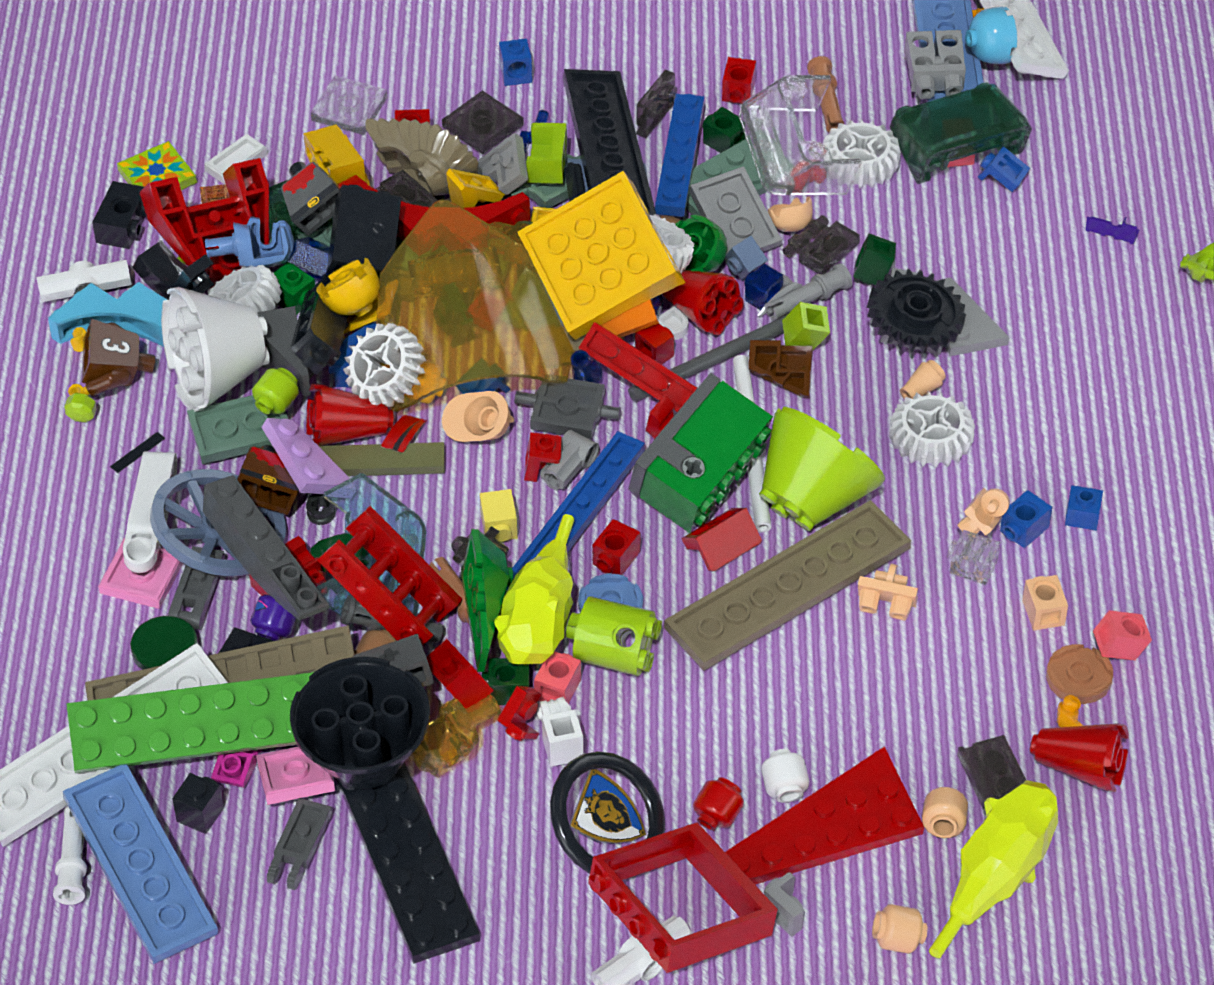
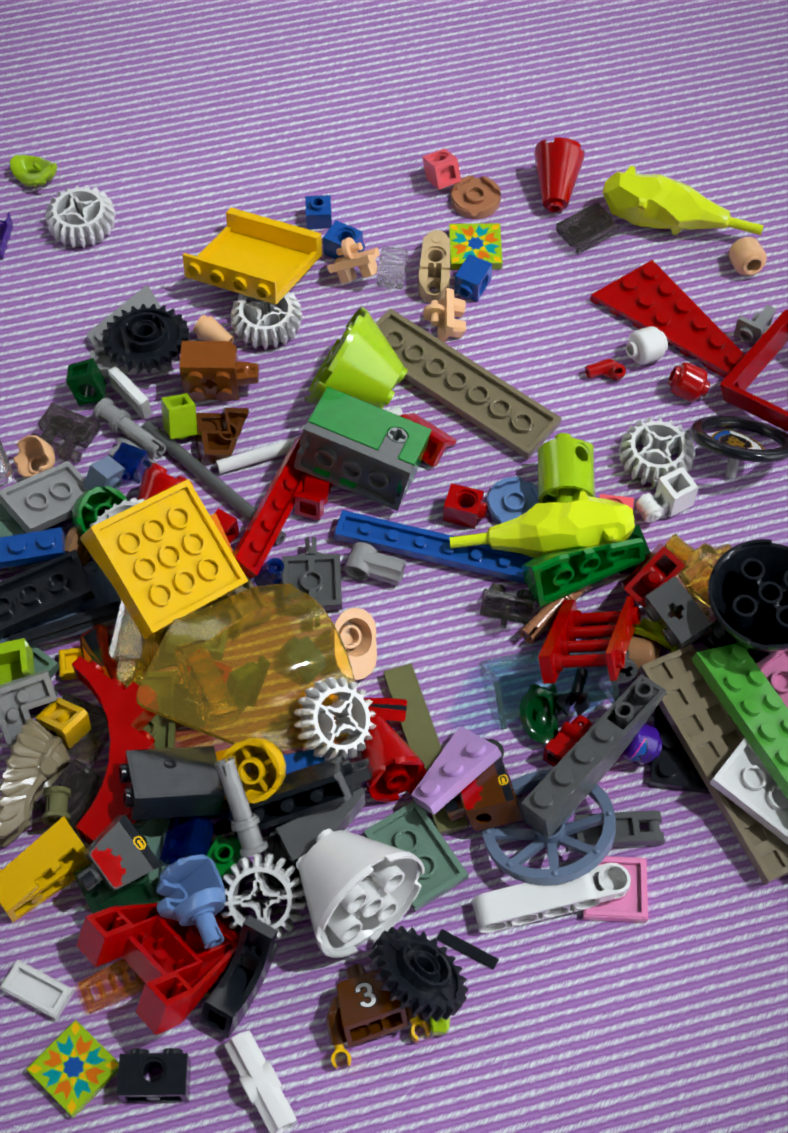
camera: 105 degrees left, 10 degrees up
(94, 389) = (418, 973): none -> black gear
(135, 311) = (293, 1009): medium azure arch -> none
(161, 640) = (693, 834): dark green tile -> none
(275, 391) = (382, 818): lime head -> none
(305, 278) = (244, 822): none -> light grey pin
(389, 175) = (56, 804): none -> olive bush
(499, 511) = (457, 602): light yellow brick -> none
(518, 710) = (659, 528): red bracket -> none
(541, 450) = (383, 583): red bracket -> none
(643, 730) = (659, 443): none -> white gear
(769, 736) = (607, 368): none -> red arm
(850, 300) = (129, 392): none -> white tile
(854, 357) = (213, 371): none -> dark orange hinge
(938, 631) = (473, 278): none -> blue brick
(945, 812) = (637, 247): light nougat head -> none
(968, 599) = (434, 266): none -> tan piece
(996, 653) = (476, 239): none -> tile
(1007, 421) = (255, 256): none -> yellow panel
(1045, 602) = (421, 219): light nougat brick -> none
(1068, 712) = (513, 196): light orange arm -> none
(1124, 292) = (80, 216): none -> white gear

